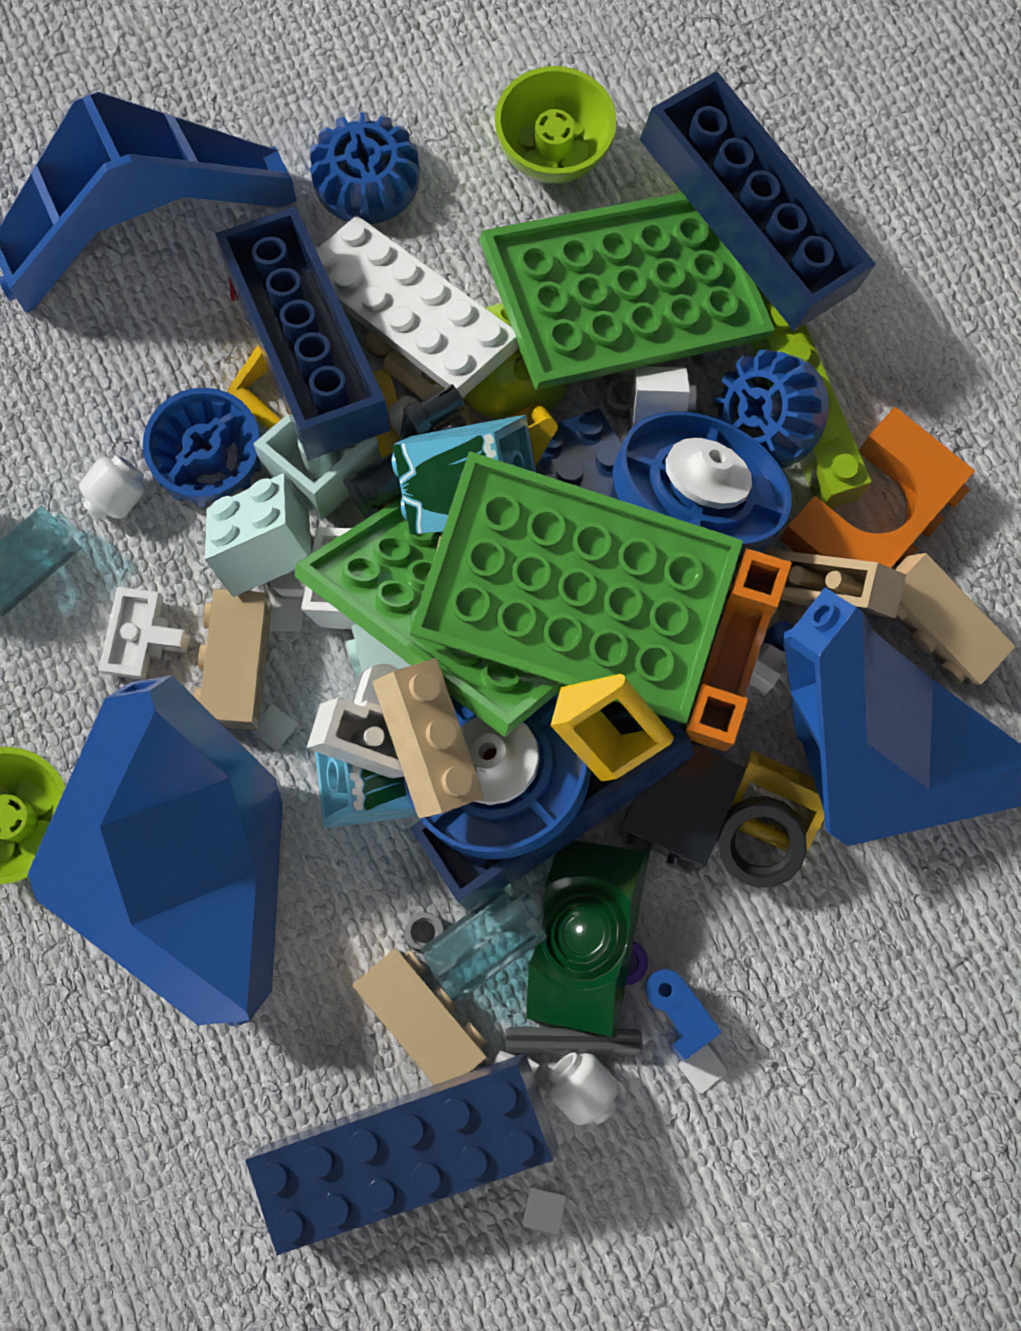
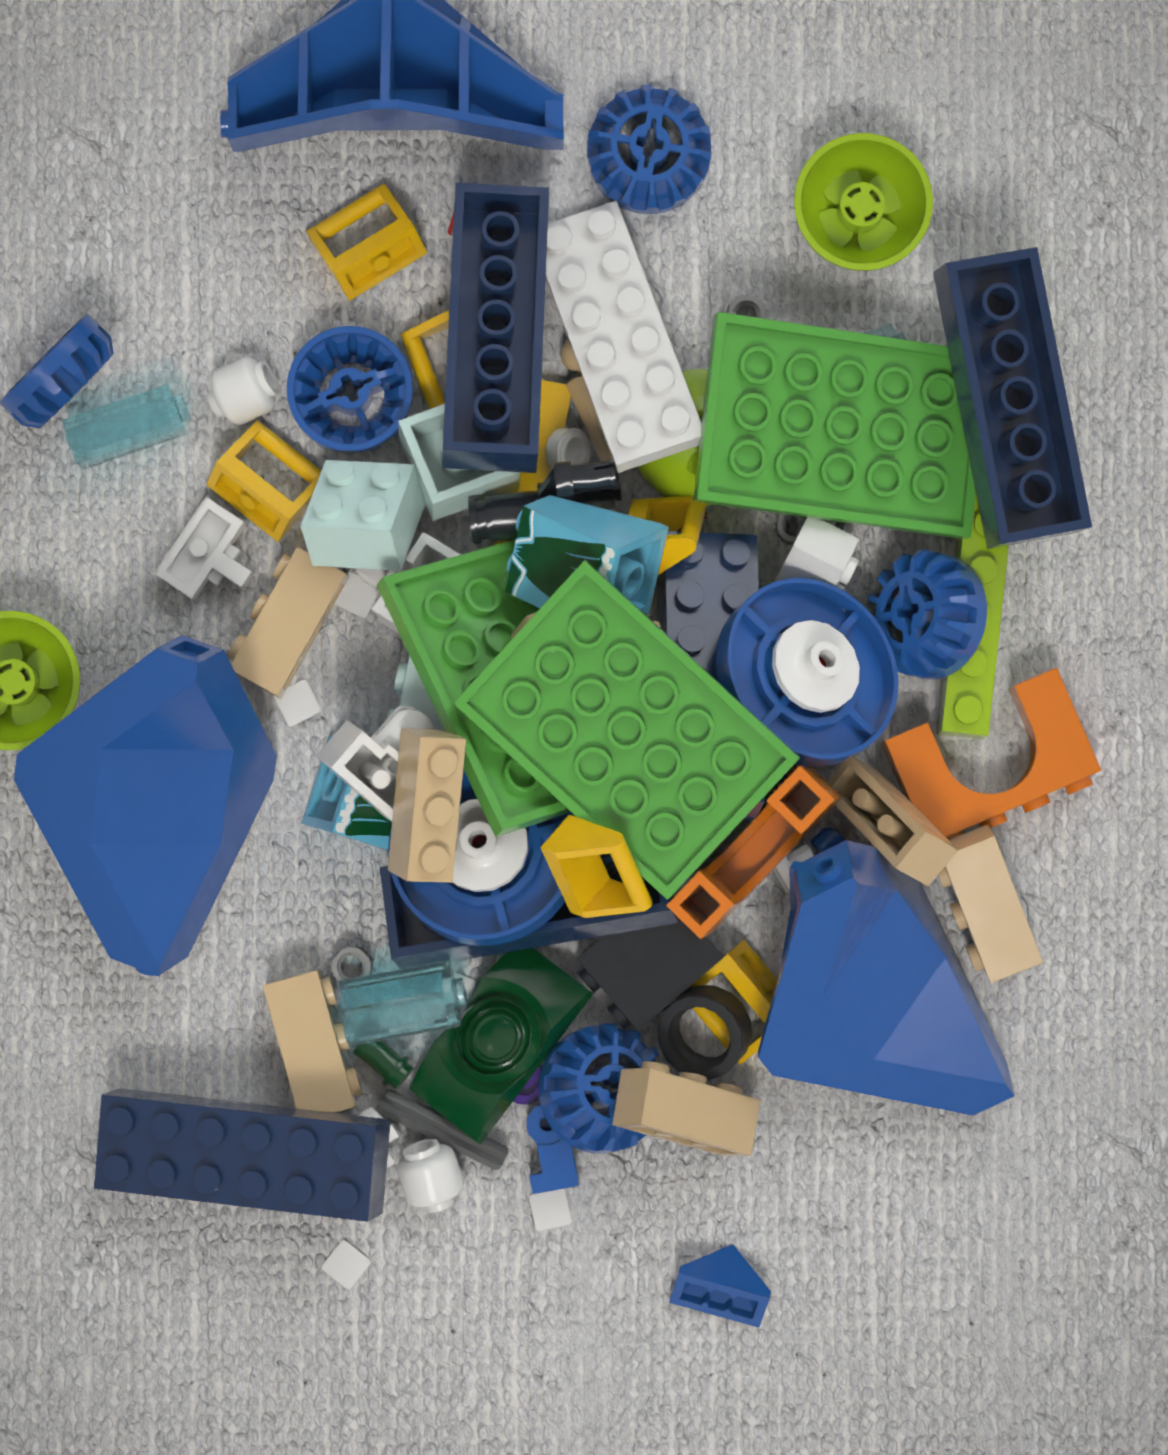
camera: 25 degrees right, 10 degrees up
(156, 566) = (253, 494): none -> yellow tile
(177, 336) = (376, 255): none -> yellow tile
(494, 1004) = (385, 1062): none -> dark green pin
(682, 957) = (568, 1093): none -> blue gear
(784, 916) = (686, 1110): none -> tan brick
(891, 1064) = (722, 1287): none -> blue slope

